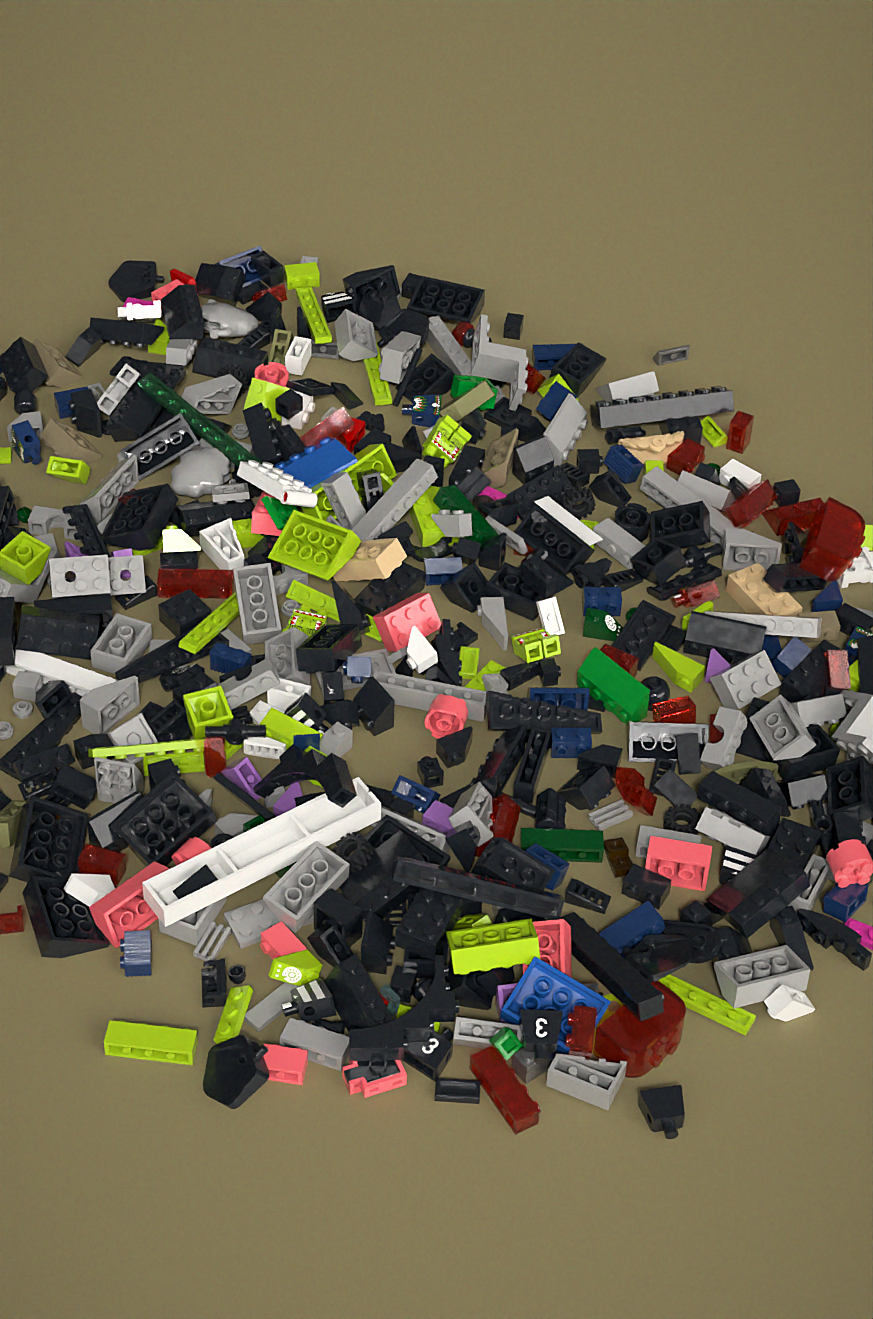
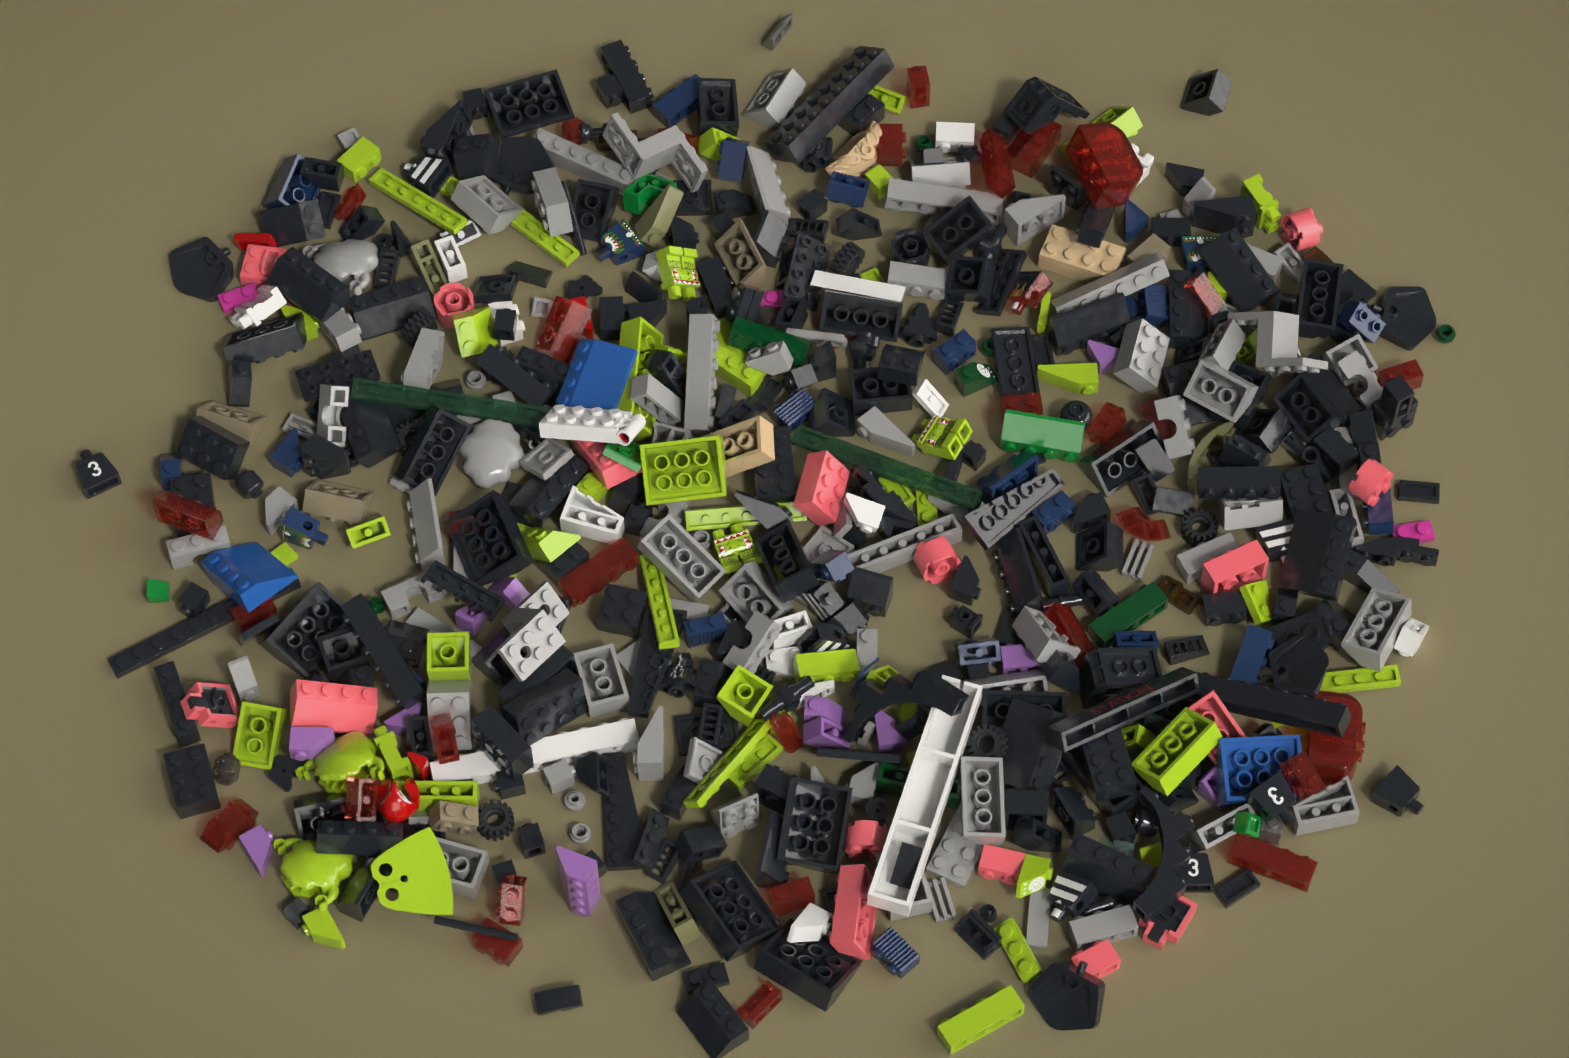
camera: 35 degrees left, 15 degrees up
(258, 757) = (824, 707): none -> medium lavender slope
(302, 326) = (422, 224): black slope -> none
(472, 639) = (888, 468): none -> clear green plate
(534, 323) = (618, 62): none -> black brick
(678, 896) = (1258, 601): none -> lime wing
(810, 484) = (1040, 104): none -> black bracket

